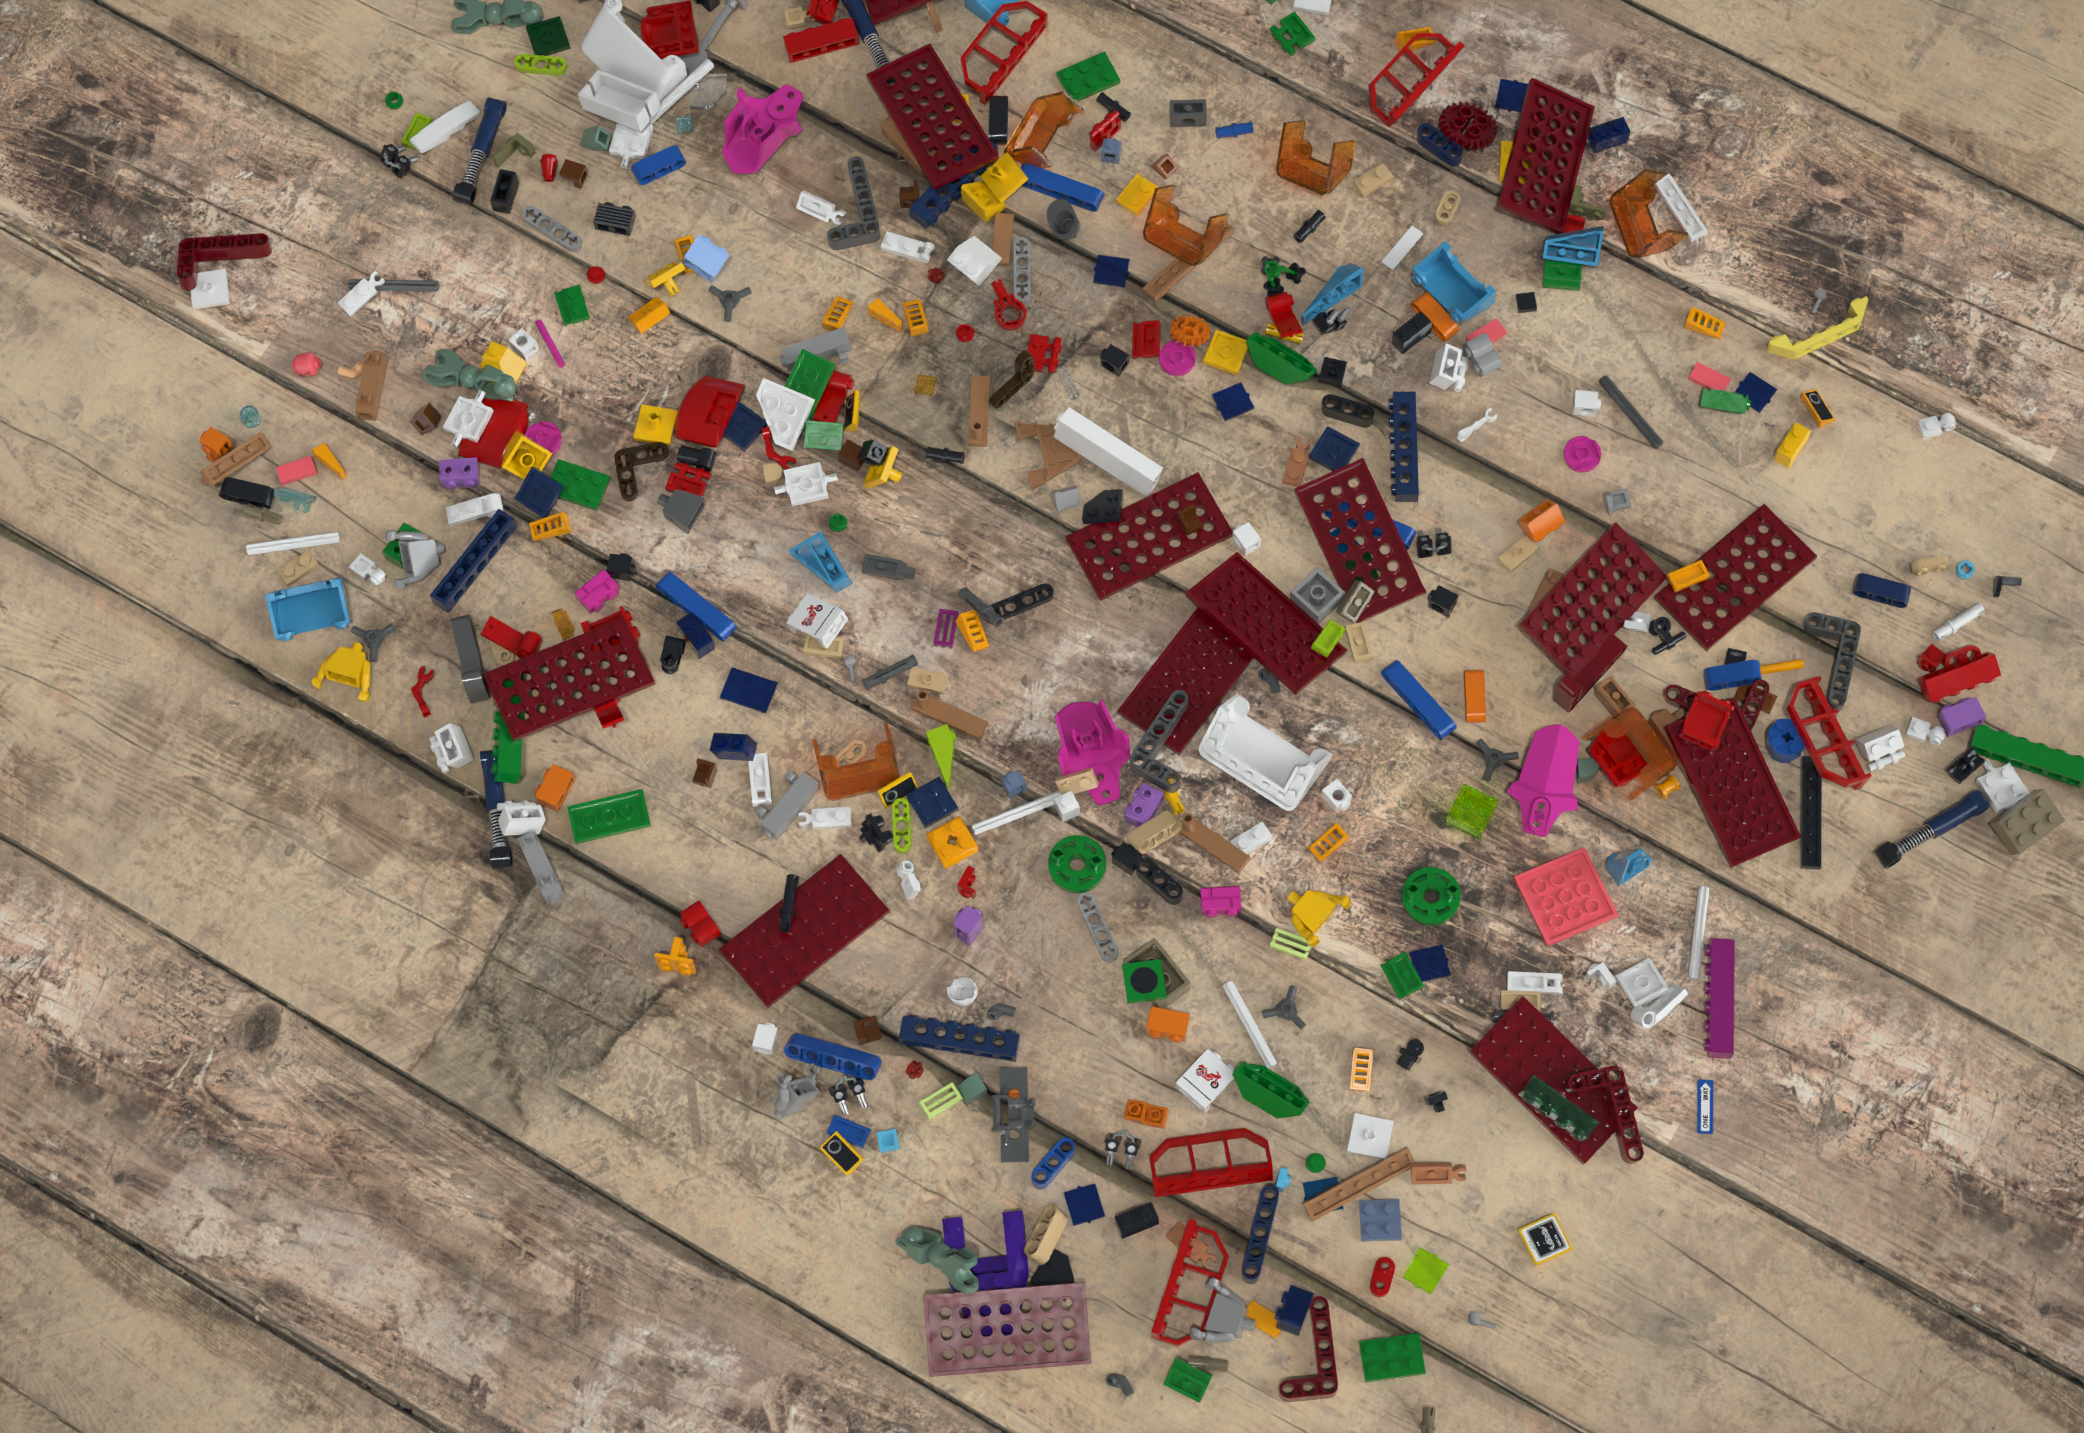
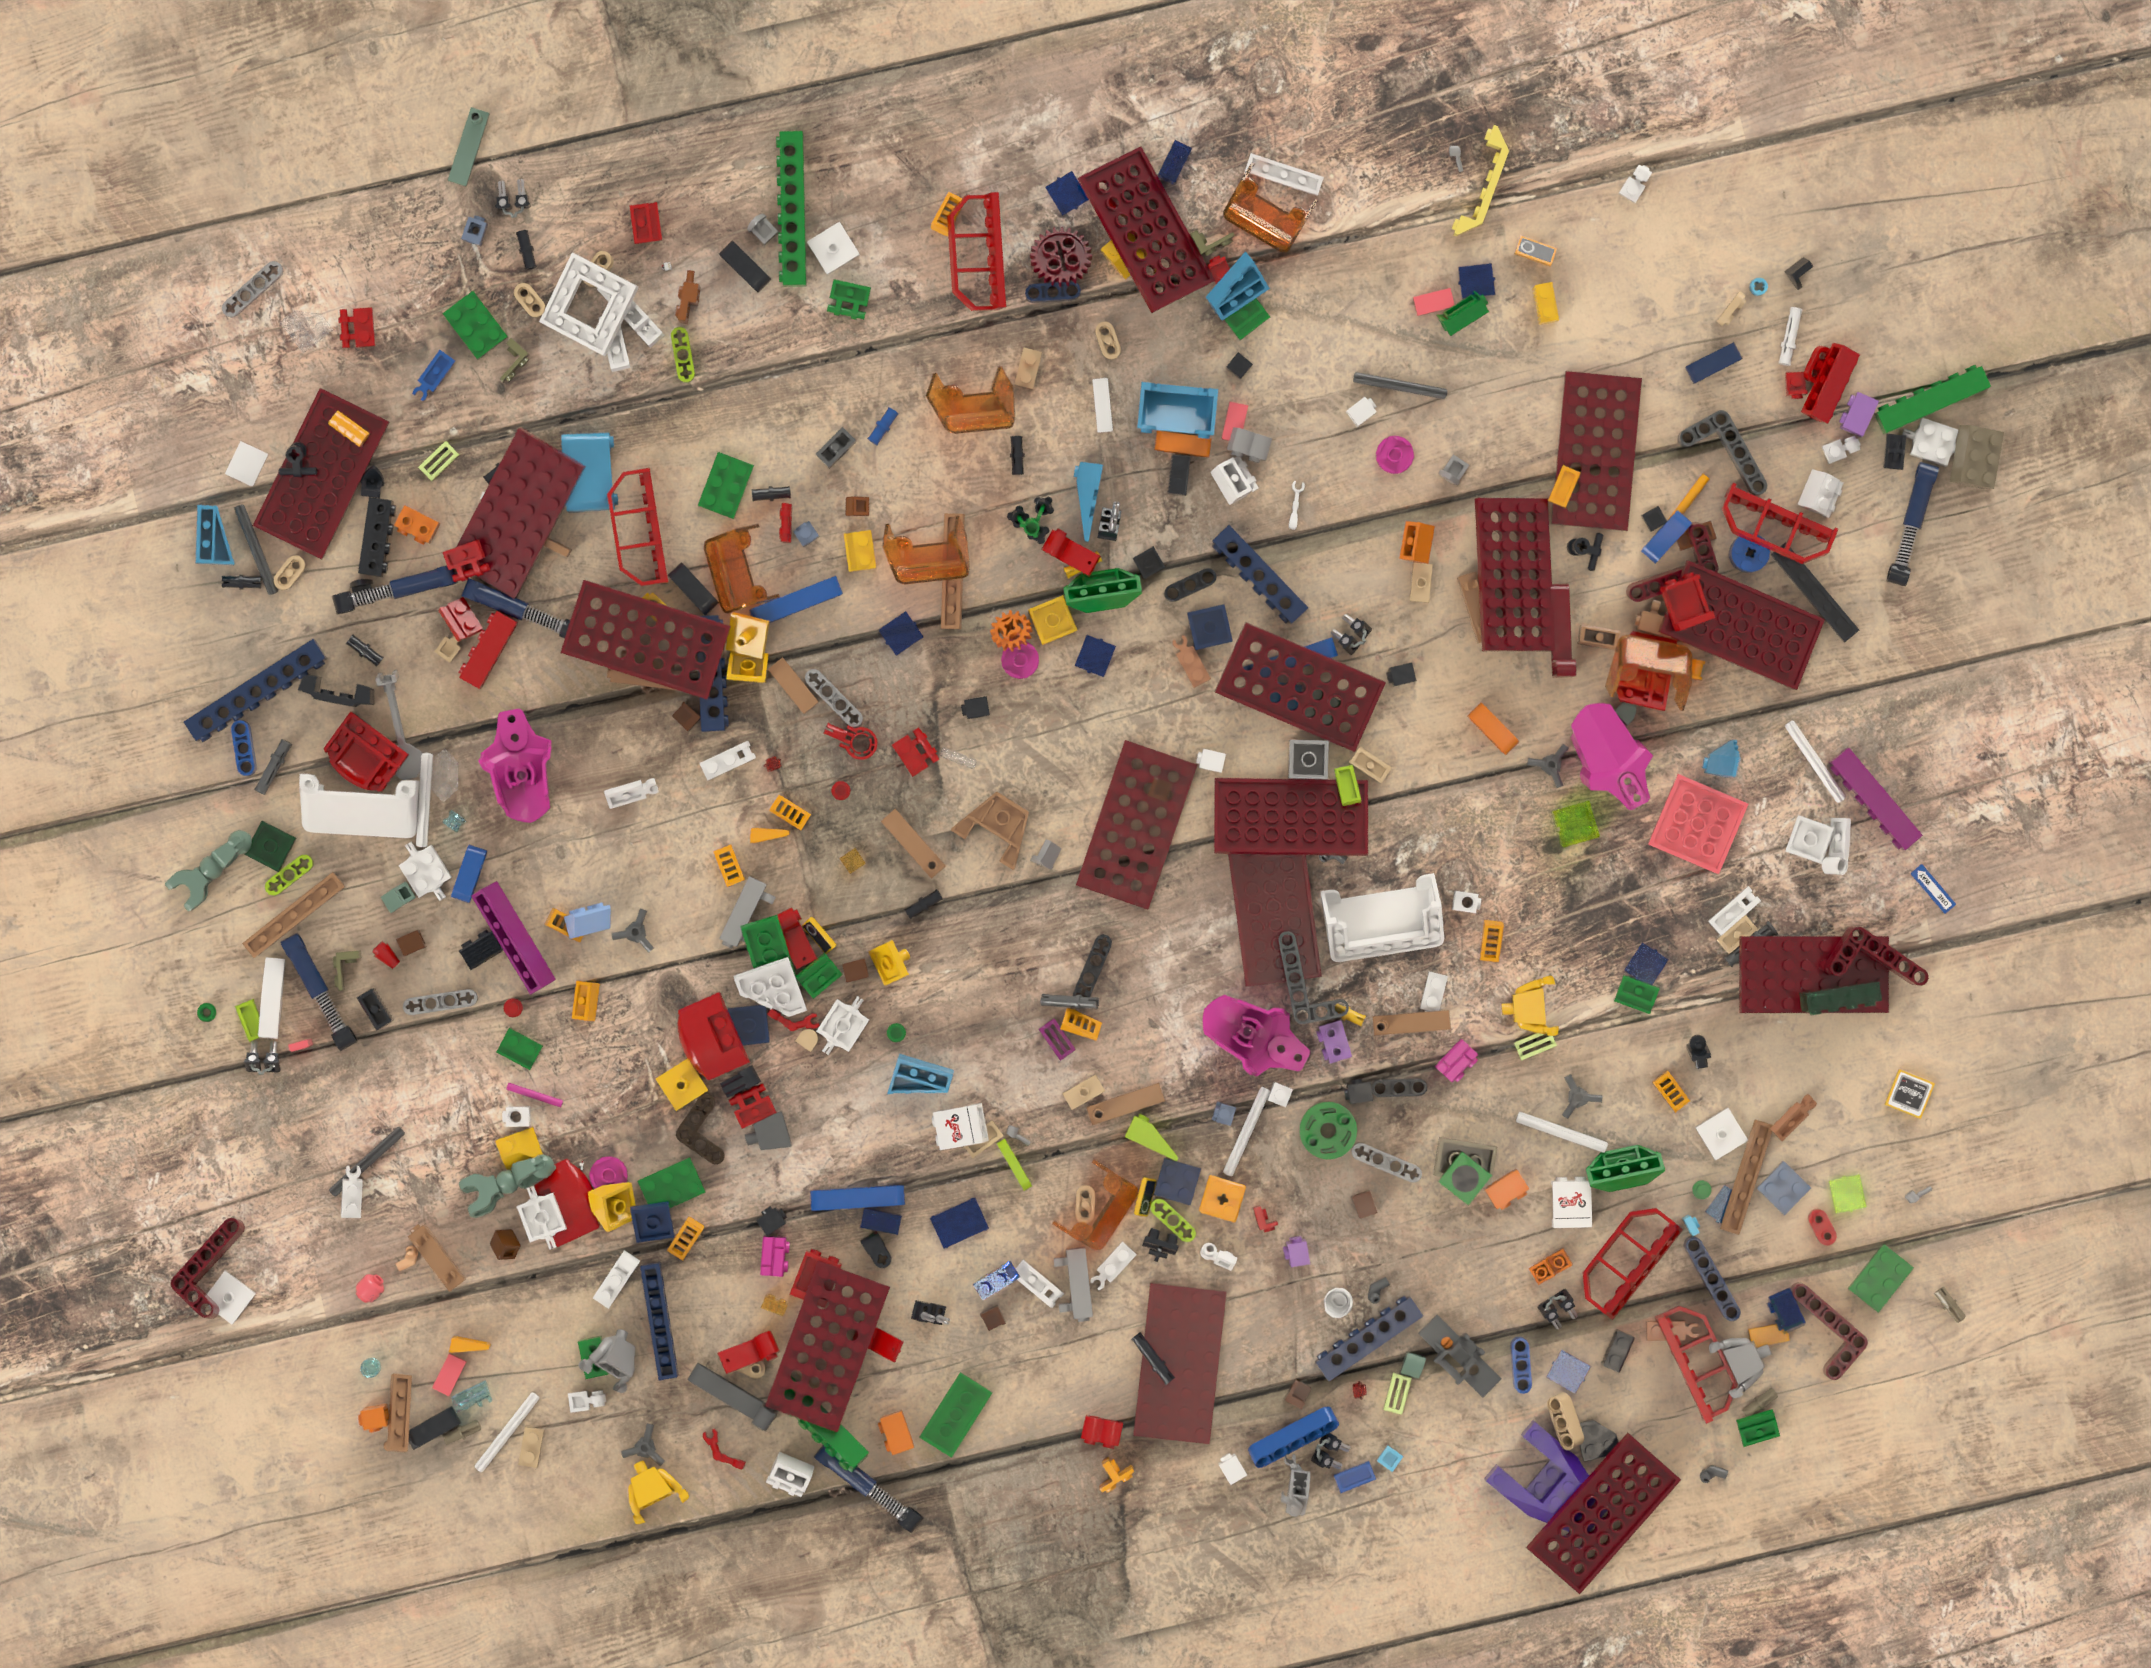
camera: 45 degrees left, 20 degrees up
(308, 608) = (571, 1470): dark azure windscreen -> none
(431, 168) = (300, 1045): none -> coral tile
(459, 473) = (574, 1263): medium lavender brick -> none
(516, 90) = (293, 915): none -> medium nougat plate
(520, 817) = (899, 1480): white brick -> none
(541, 867) = (946, 1499): light grey brick -> none
(619, 100) = (389, 853): white piece -> none
(643, 228) = (513, 937): none -> magenta brick
(656, 722) = (929, 1312): none -> black piece
(665, 276) = (570, 962): yellow tile -> none
(828, 683) = (1014, 1164): none -> lime beam
(841, 1153) = (1367, 1499): slope -> none
(864, 207) = (662, 762): dark grey beam -> none
(872, 453) = (874, 959): black brick -> none
(886, 568) = (968, 1034): dark grey hinge -> none
(889, 672) = (1056, 1095): dark grey pin -> none
(952, 1262) = (1511, 1509): sand green piece -> none
(974, 260) = (792, 726): white slope -> none
(1023, 374) = (920, 789): dark brown beam -> none
(1052, 938) = (1364, 1204): none -> reddish brown panel
(1063, 219) = (827, 629): dark grey piece -> none
(1077, 781) = (1271, 1071): tan plate -> none
(1104, 507) = (1083, 835): black plate -> none
(1107, 451) = (1048, 793): white brick -> none
(1146, 339) = (983, 667): red plate -> none
(1154, 832) = (1363, 1055): tan beam -> none
(1355, 601) = (1339, 738): dark tan slope -> none
(1418, 699) = (1455, 770): blue beam -> none
(1436, 1100) = (1744, 1064): black tile -> none
(1448, 896) = (1614, 902): green piece -> none
(1604, 976) = (1780, 861): white bracket -> none
(1639, 622) = (1561, 558): white bracket -> none
(1700, 315) = (1373, 258): light orange slope -> none

